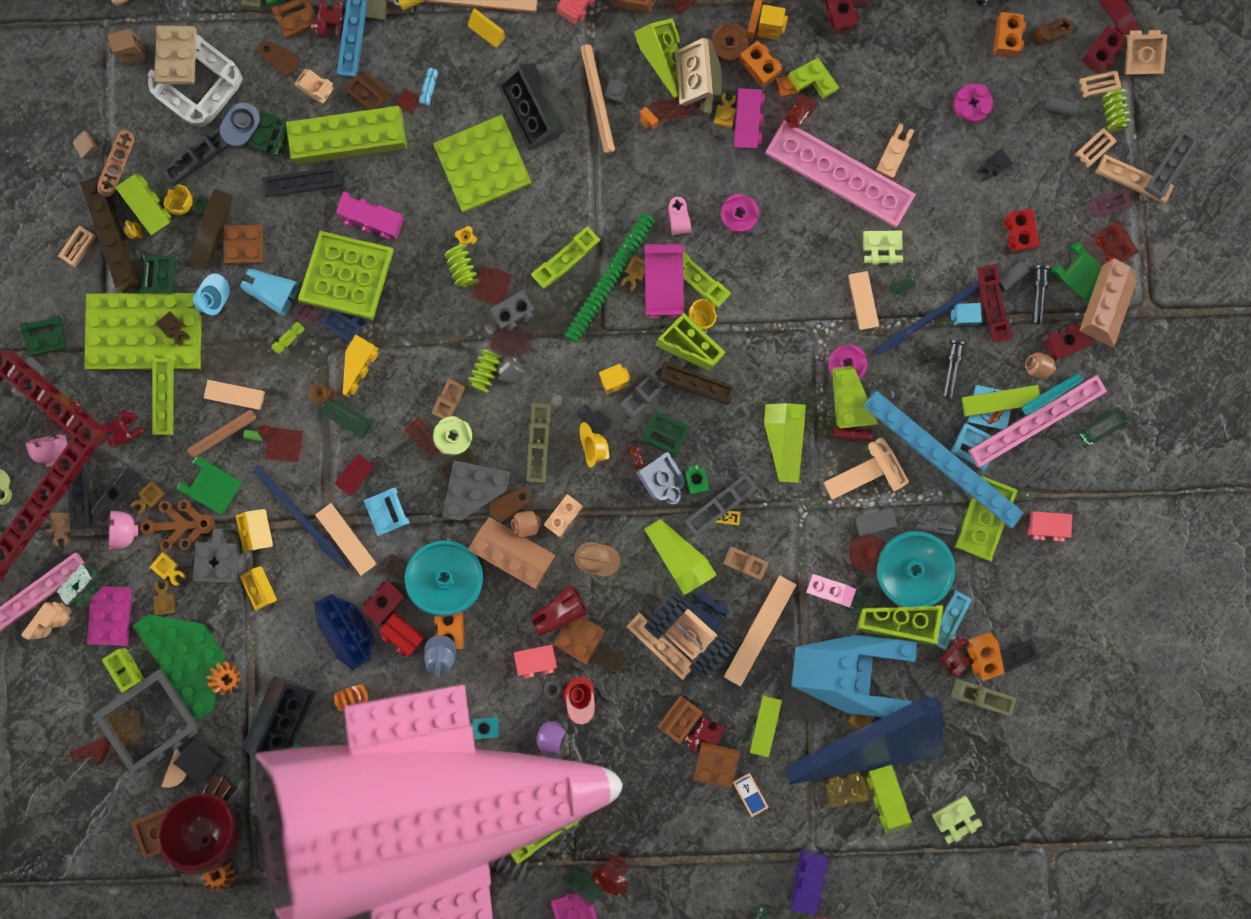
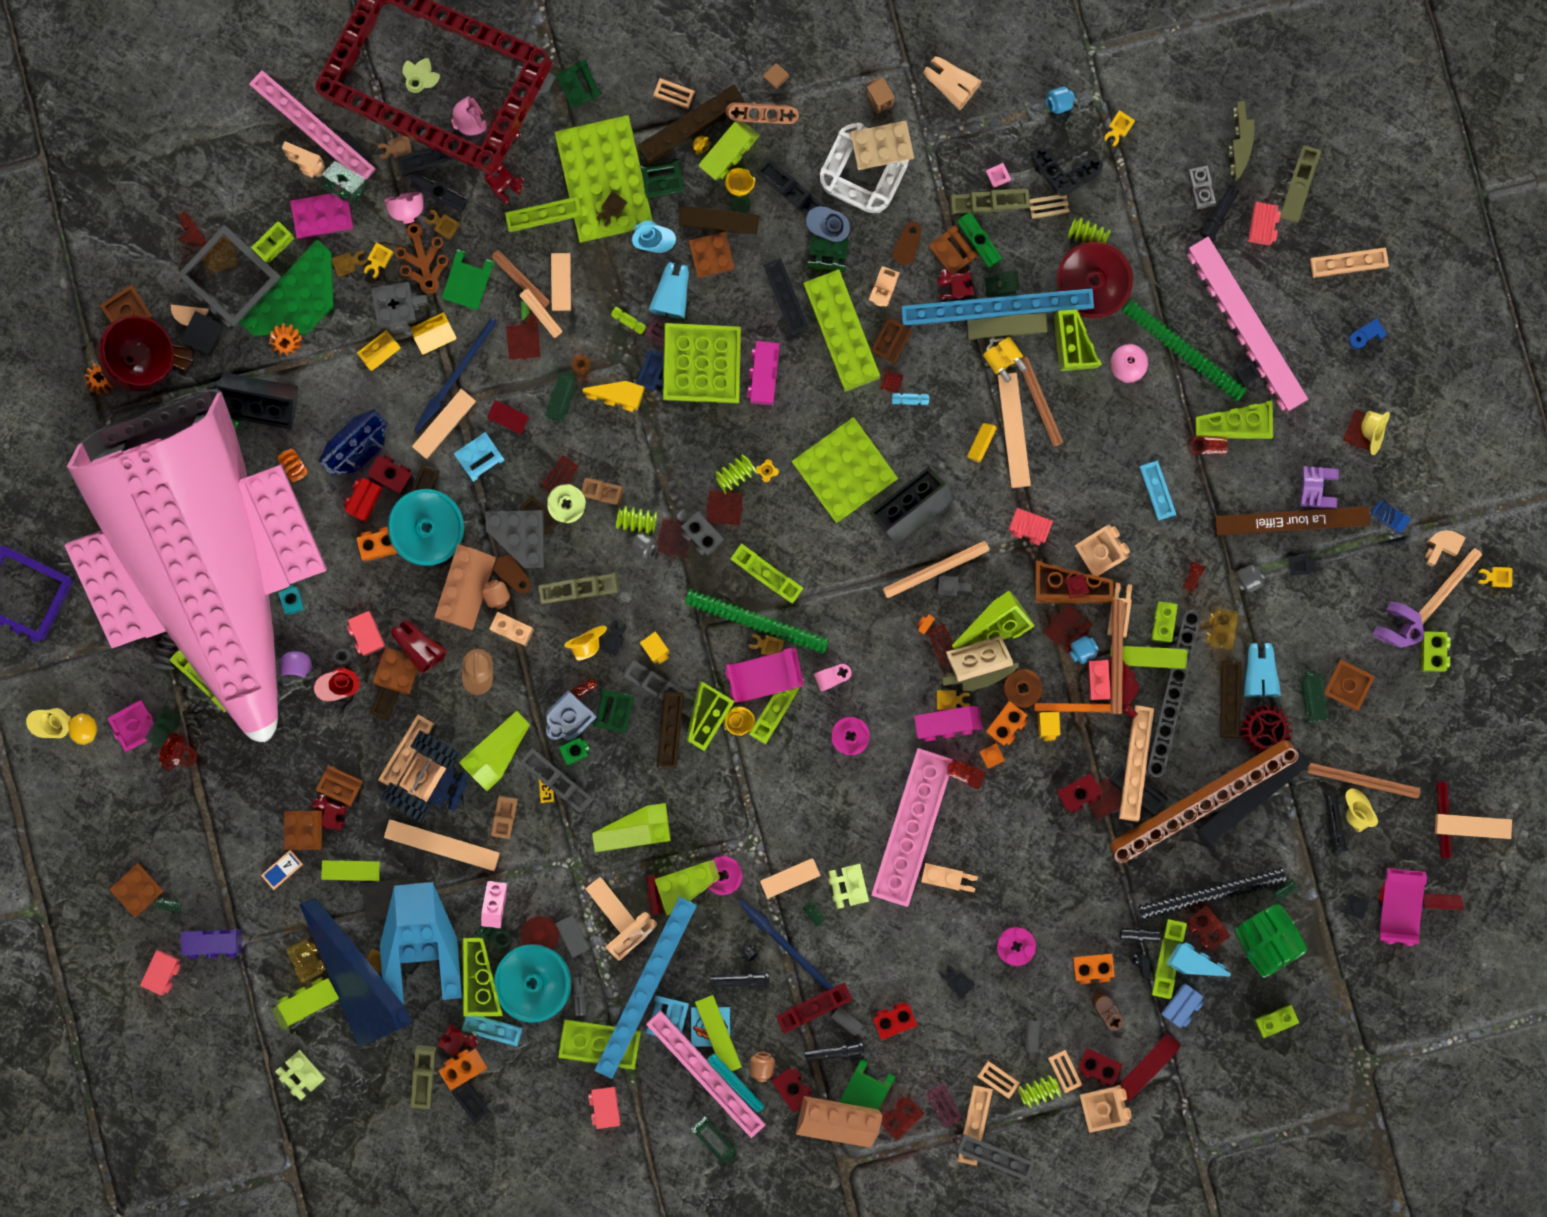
camera: 80 degrees right, 0 degrees up
(258, 420) = (541, 313): none -> light nougat axle
(439, 655) = (350, 540): sand blue piece -> none
(814, 74) = (1009, 780): lime plate -> none
(966, 314) = (797, 982): medium azure brick -> none

